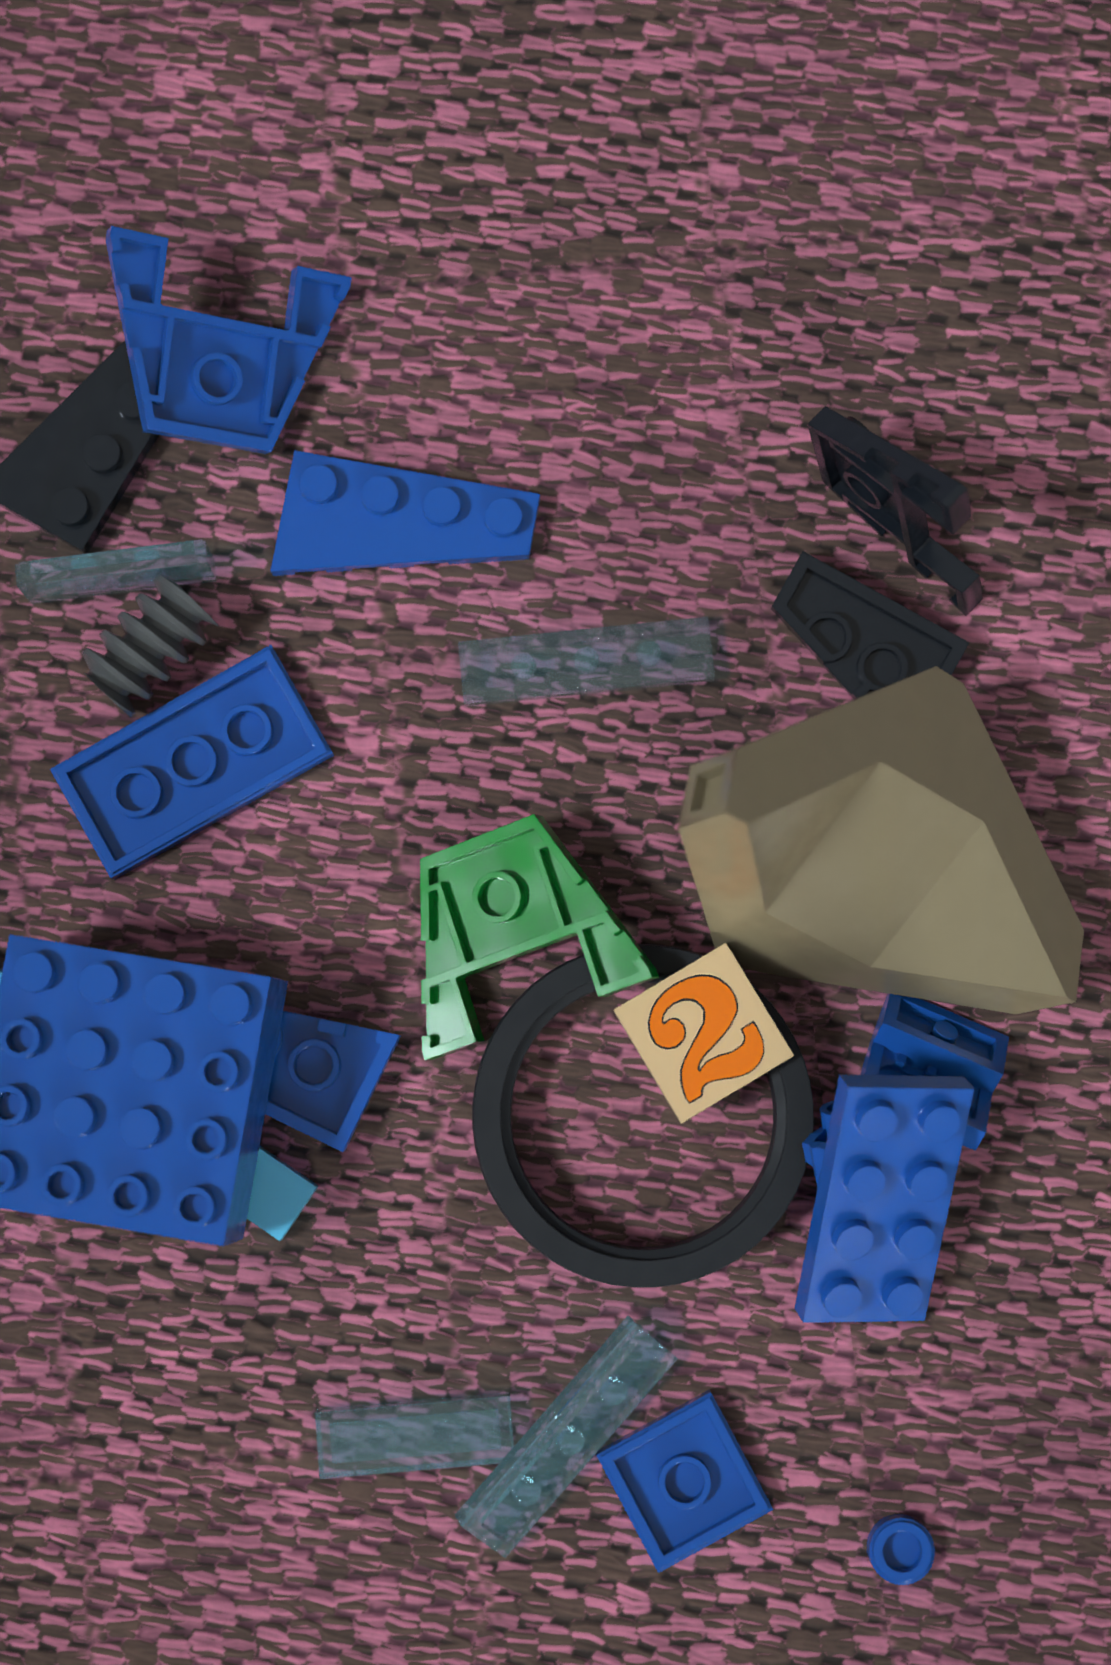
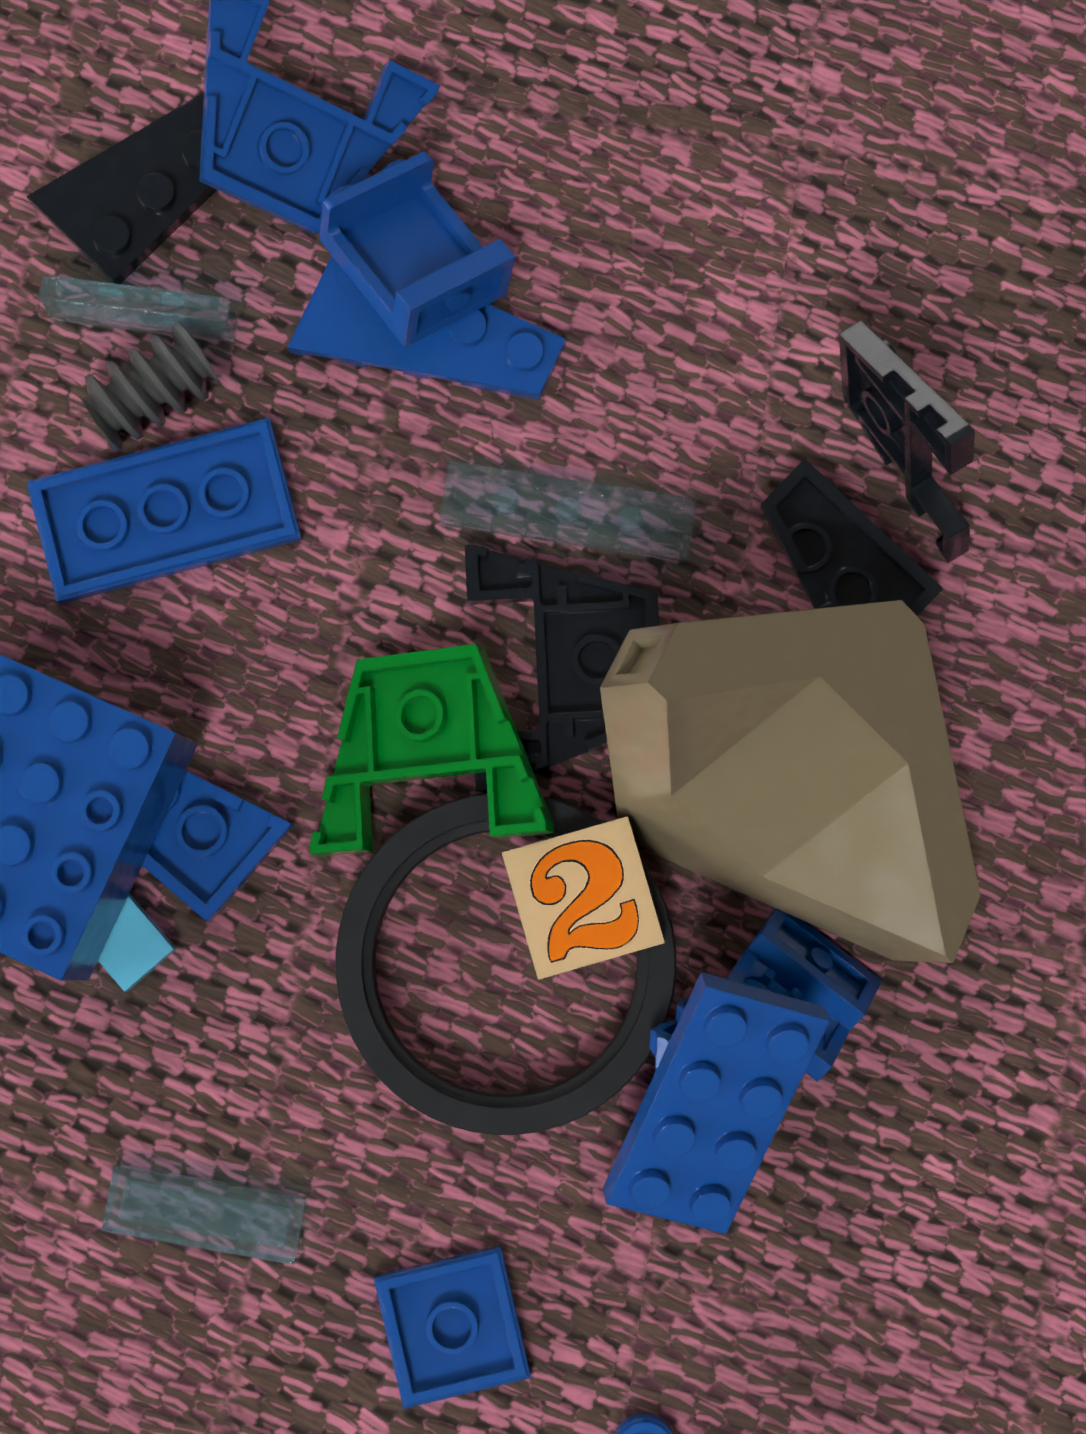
camera: 15 degrees right, 0 degrees up
(369, 447) = (411, 250): none -> blue panel
(565, 1437) = (348, 1253): clear light blue tile -> none
(636, 787) = (576, 636): none -> black wing

